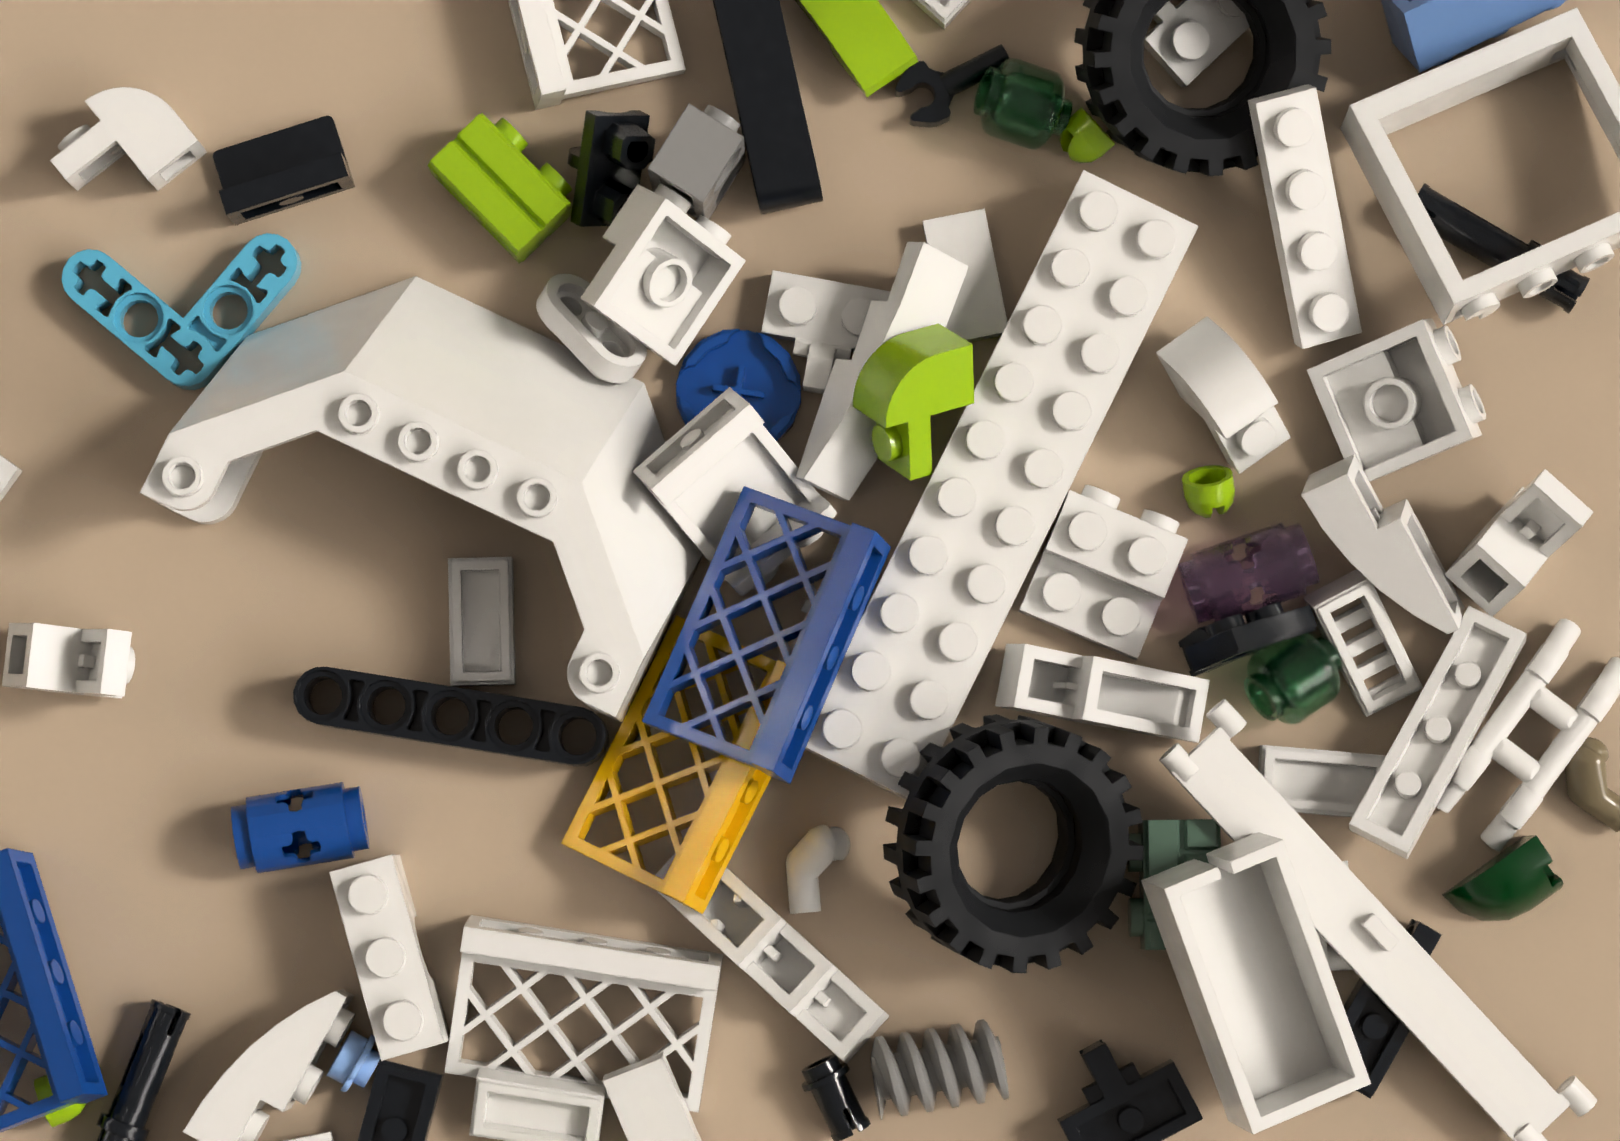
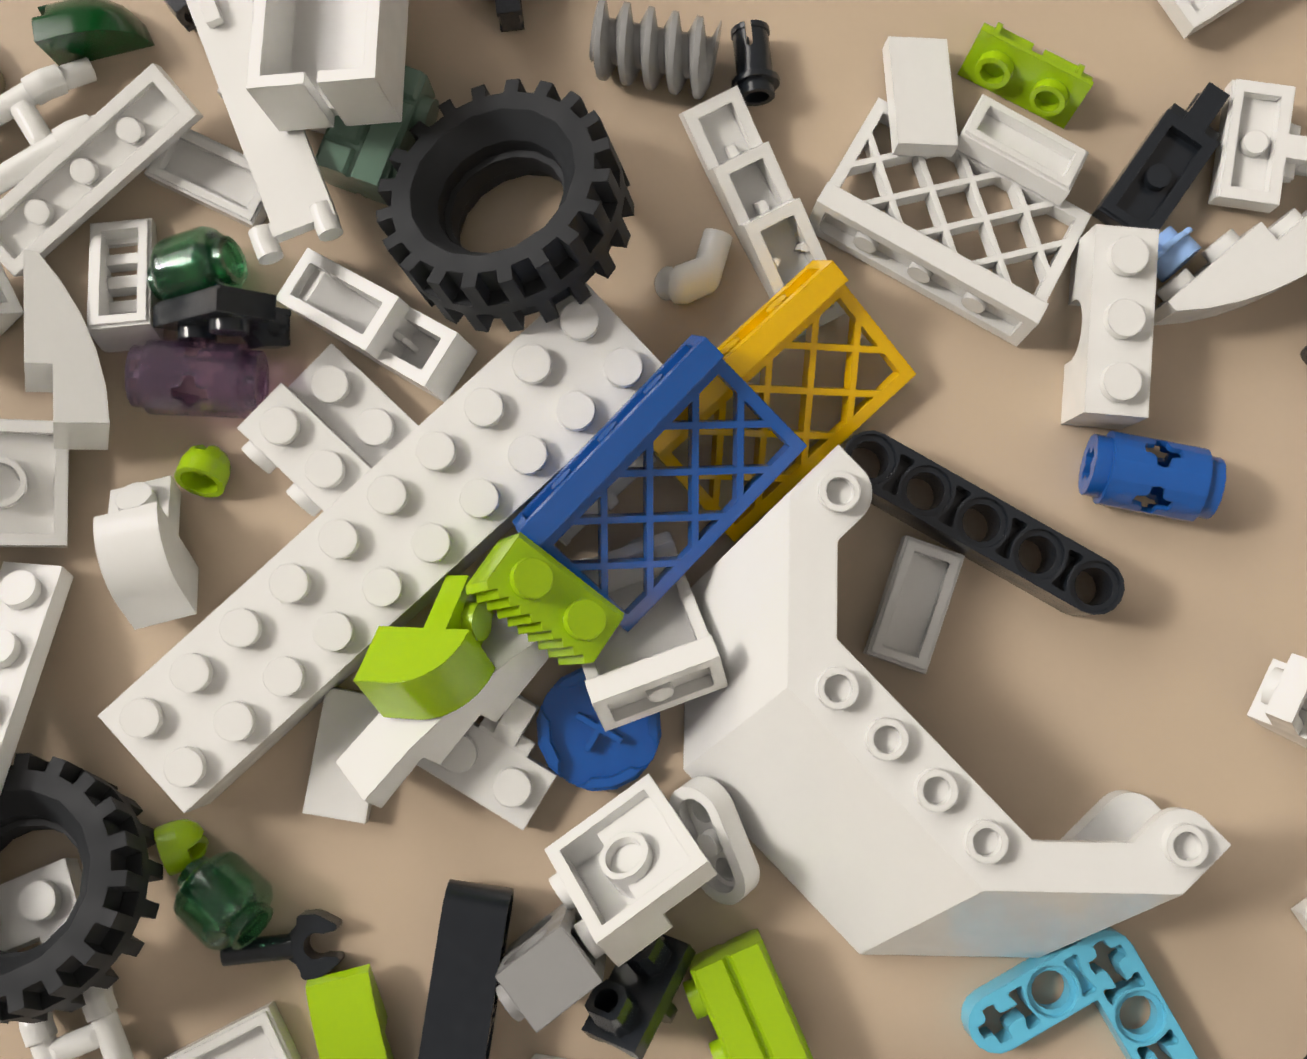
camera: 160 degrees left, 0 degrees up
(829, 480) = (544, 601): none -> lime brick

